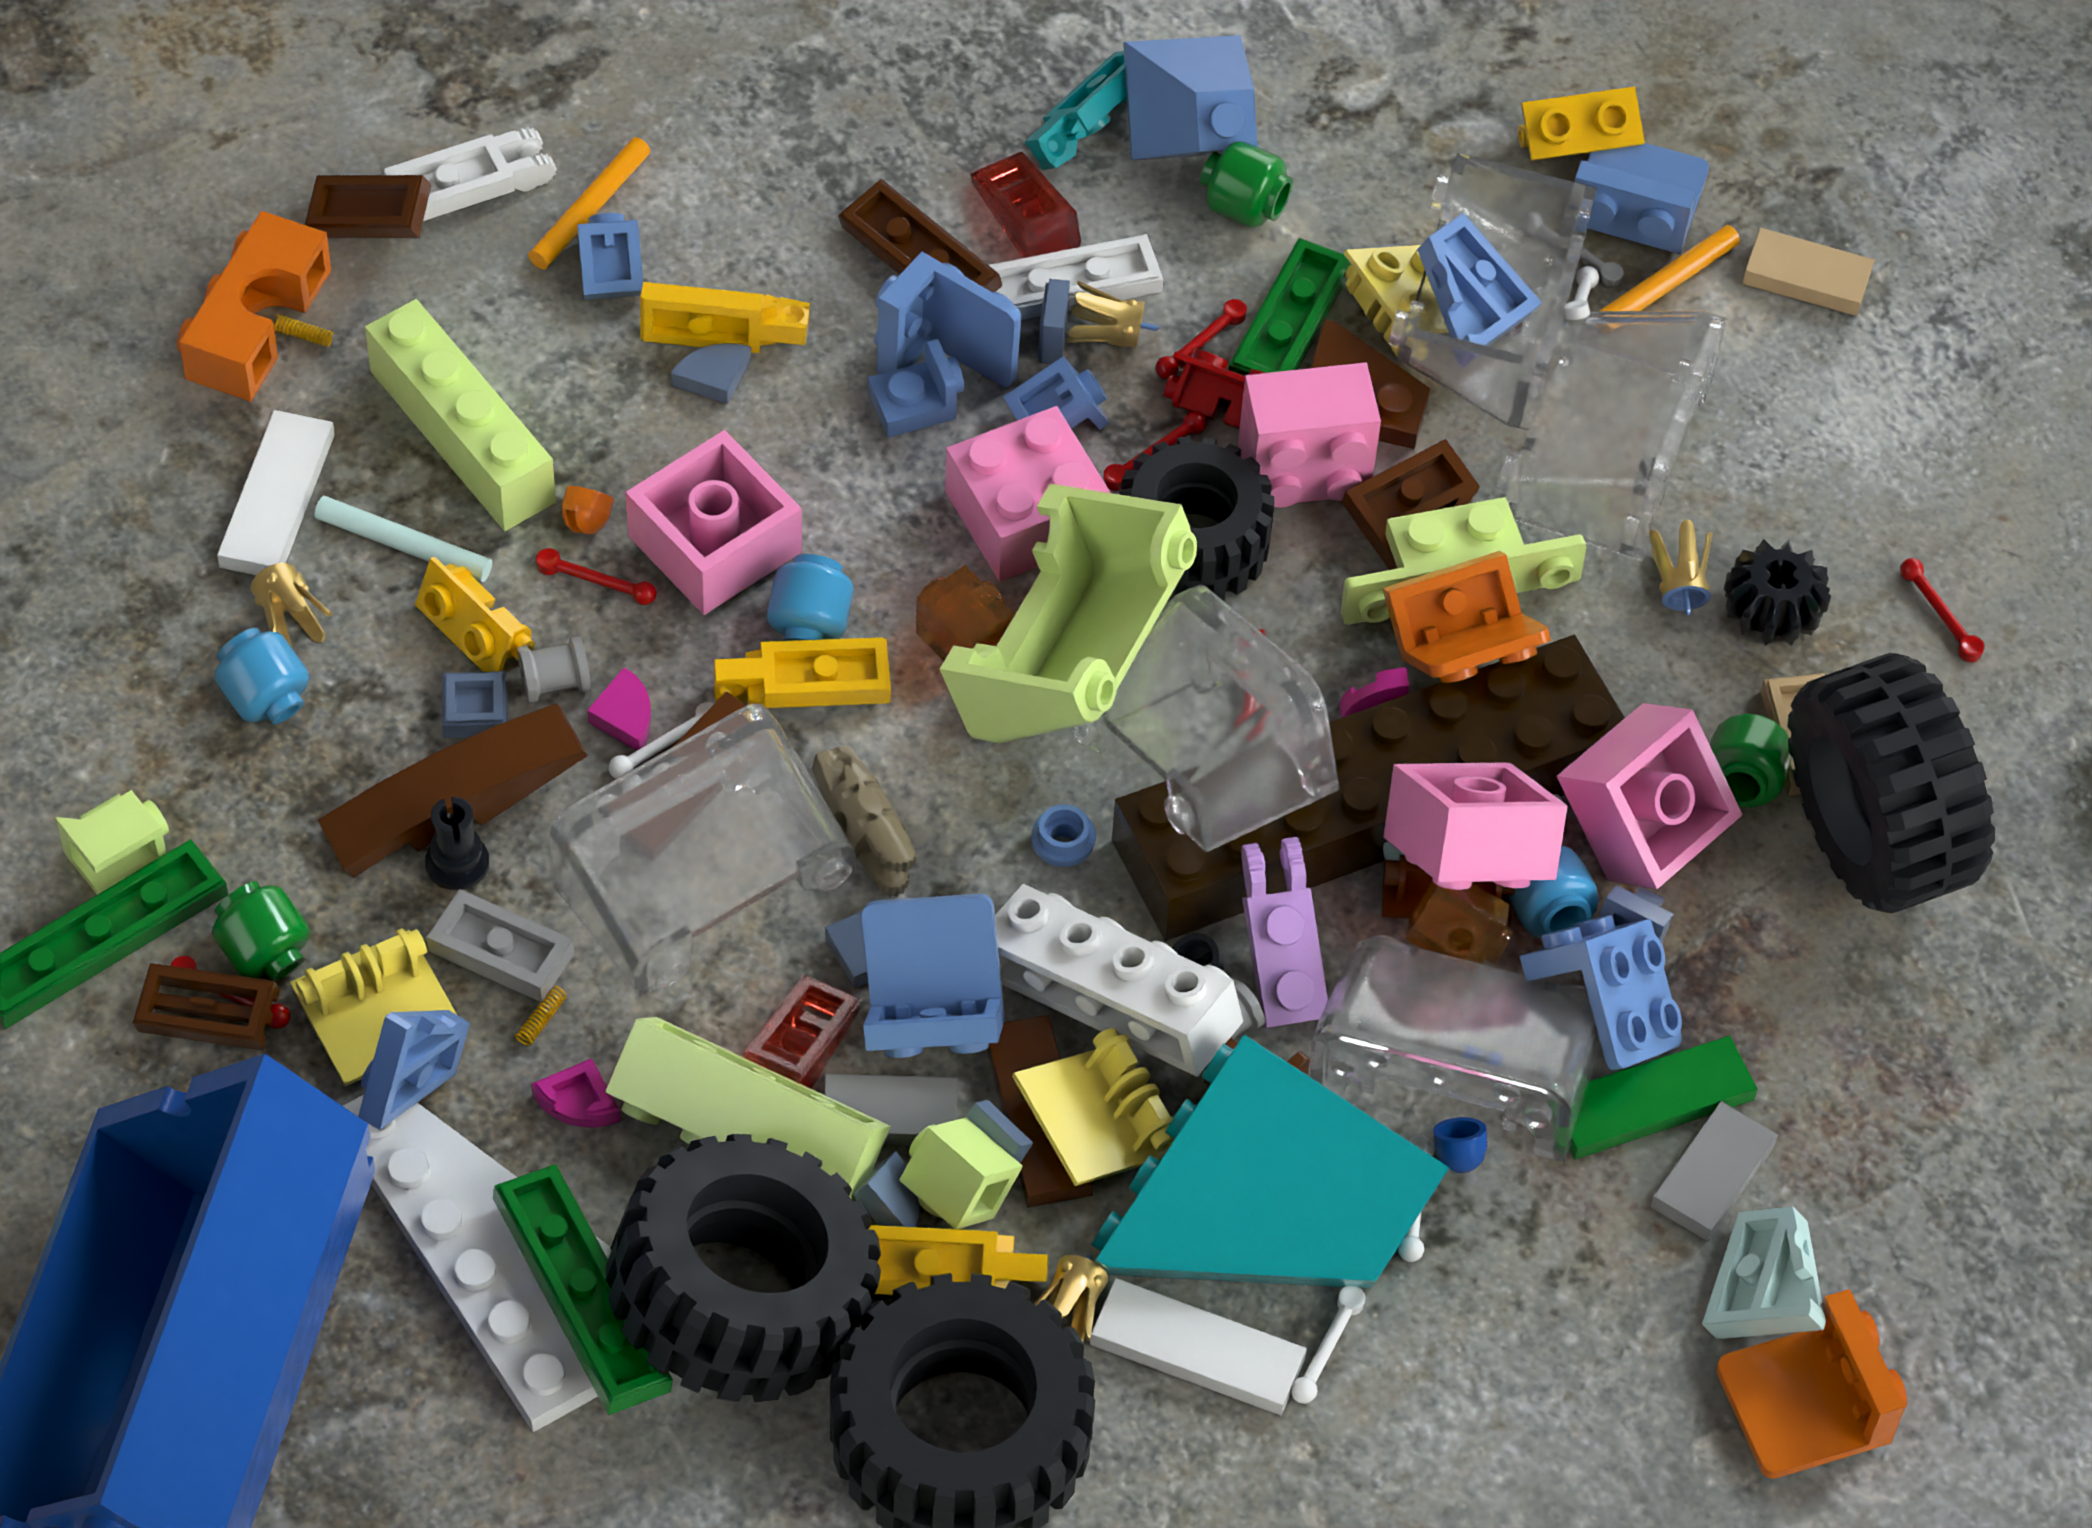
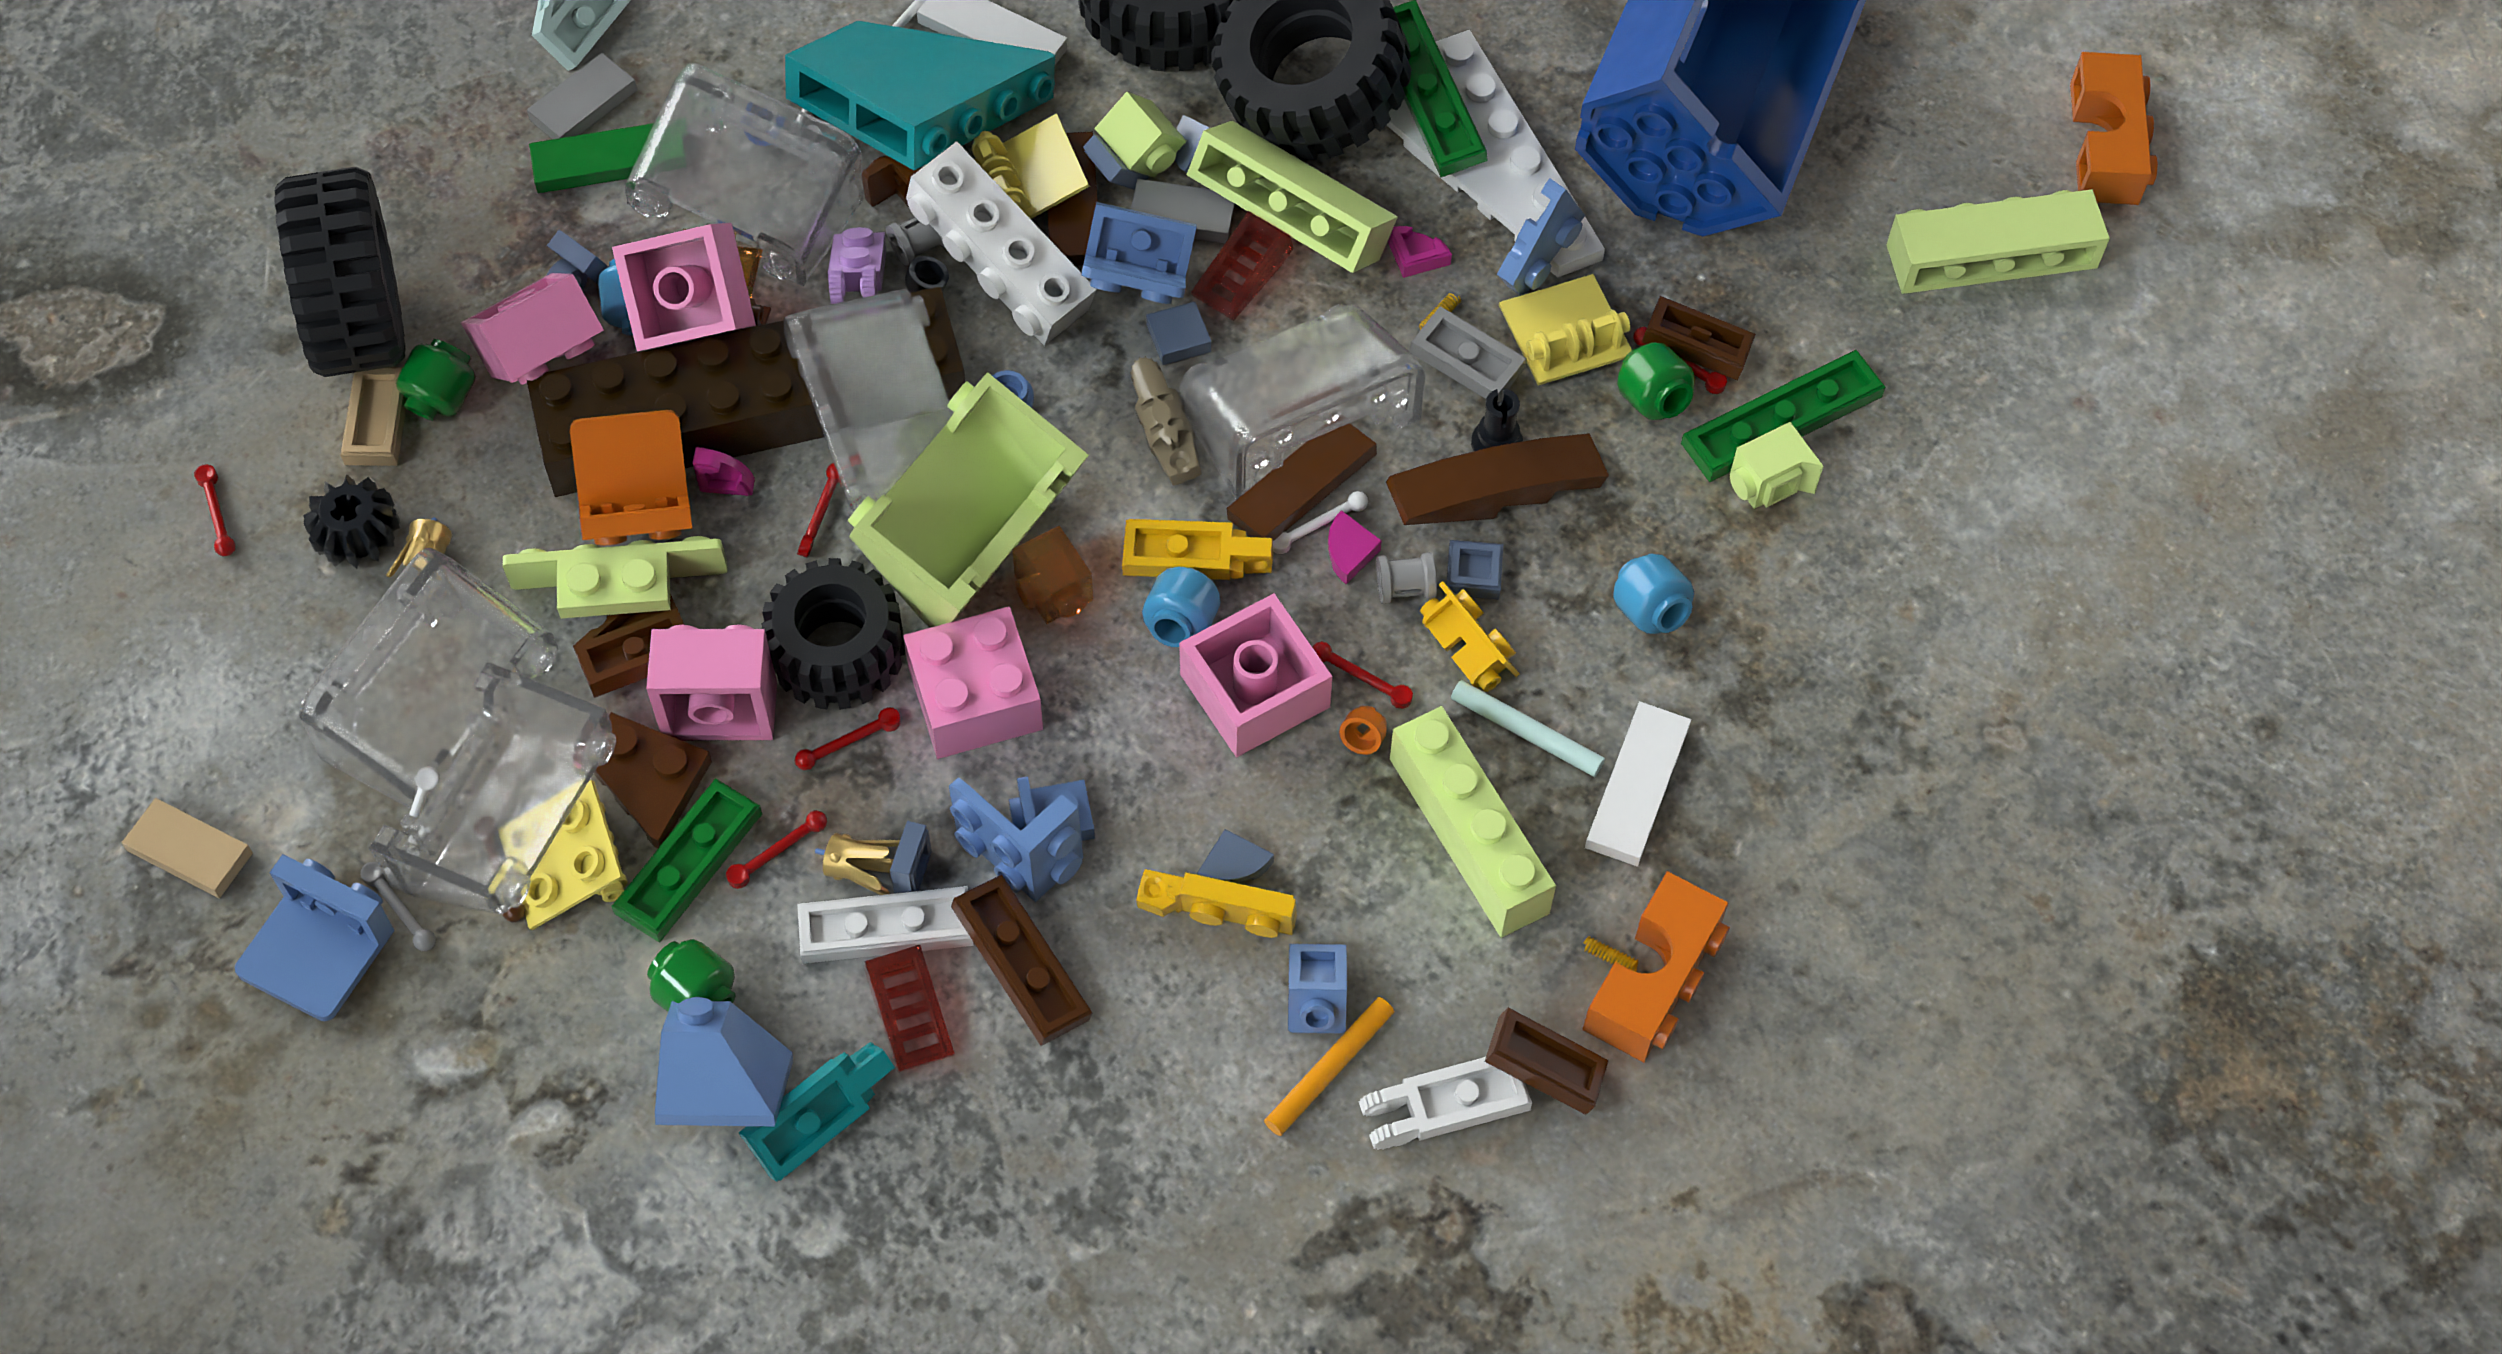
camera: 170 degrees left, 5 degrees up
(281, 590) = (1639, 676): pearl gold piece -> none
(919, 1253) = (1169, 90): yellow hinge -> none
(1064, 387) = (922, 775): medium blue bracket -> none
(1077, 1284) = (1069, 68): pearl gold piece -> none
(1205, 384) = (755, 773): red hinge -> none
(1474, 284) = (518, 792): medium blue wing -> none
(1581, 123) = (319, 1017): yellow hinge -> none
(1622, 981) = (618, 199): medium blue bracket -> none
(1677, 271) = (327, 855): light orange bar -> none

